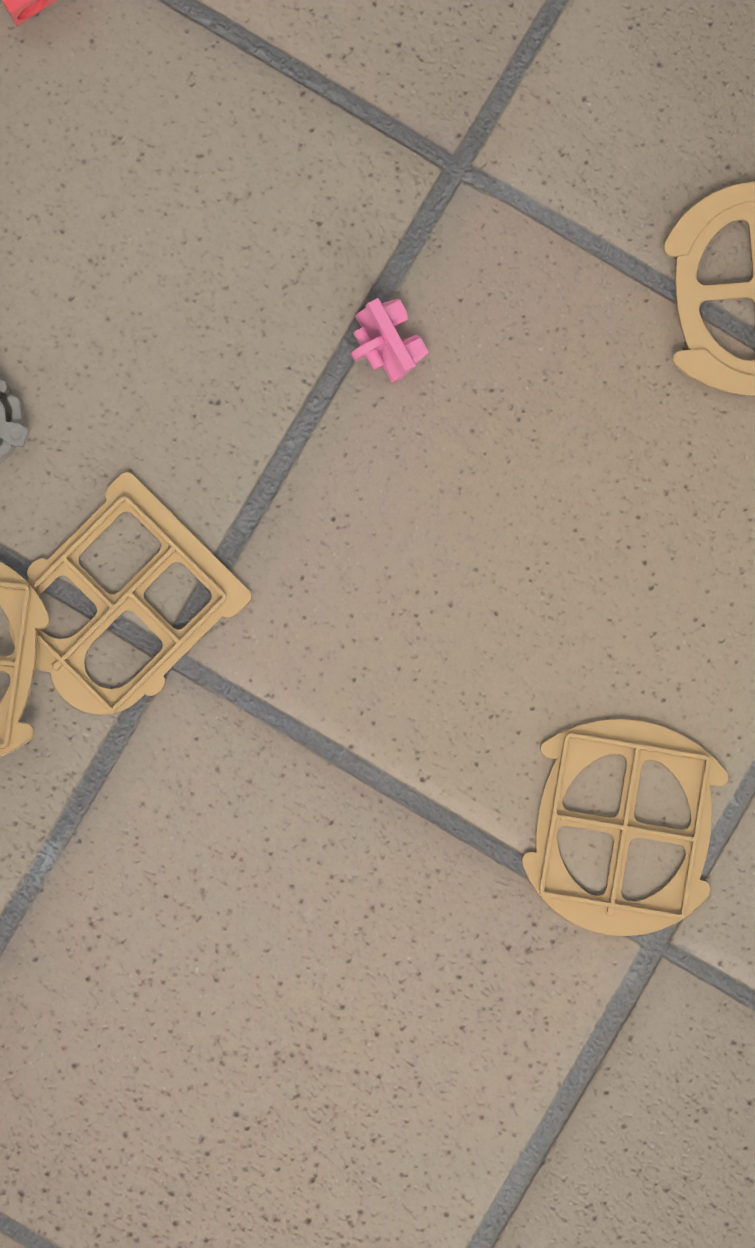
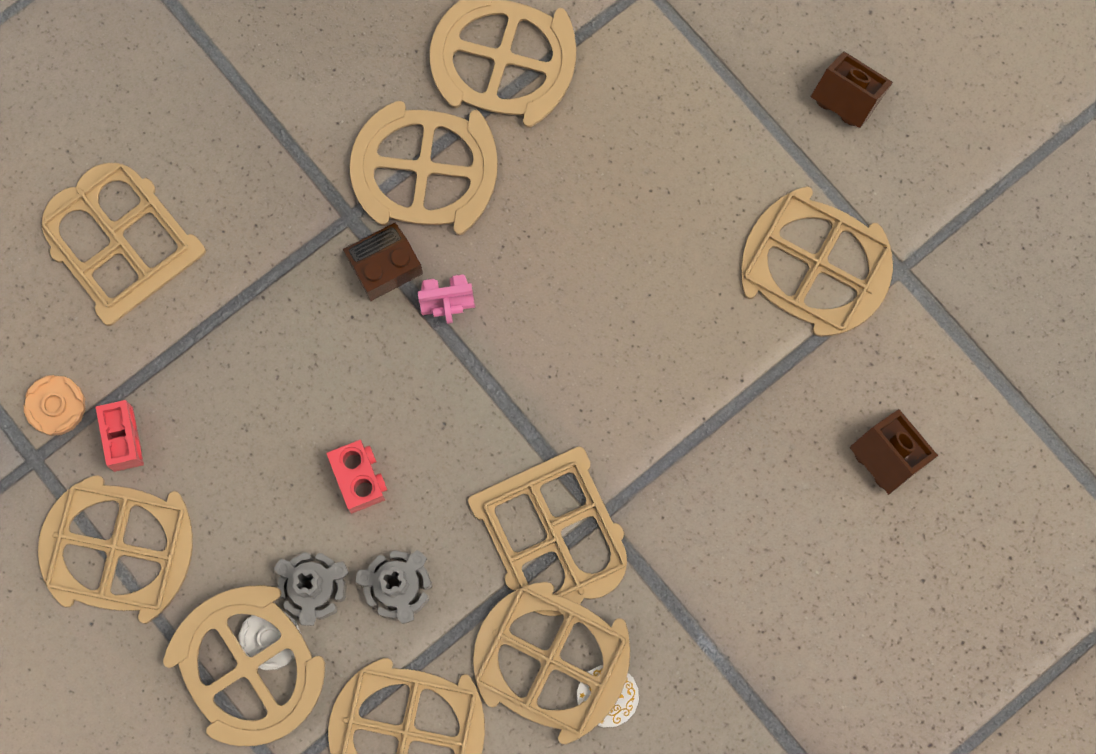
camera: 65 degrees left, 10 degrees down
(91, 303) = (350, 479): none -> coral brick
(393, 1018) = (893, 451): none -> reddish brown slope
(408, 234) = (383, 261): none -> reddish brown slope
(581, 322) = (481, 173): none -> tan window

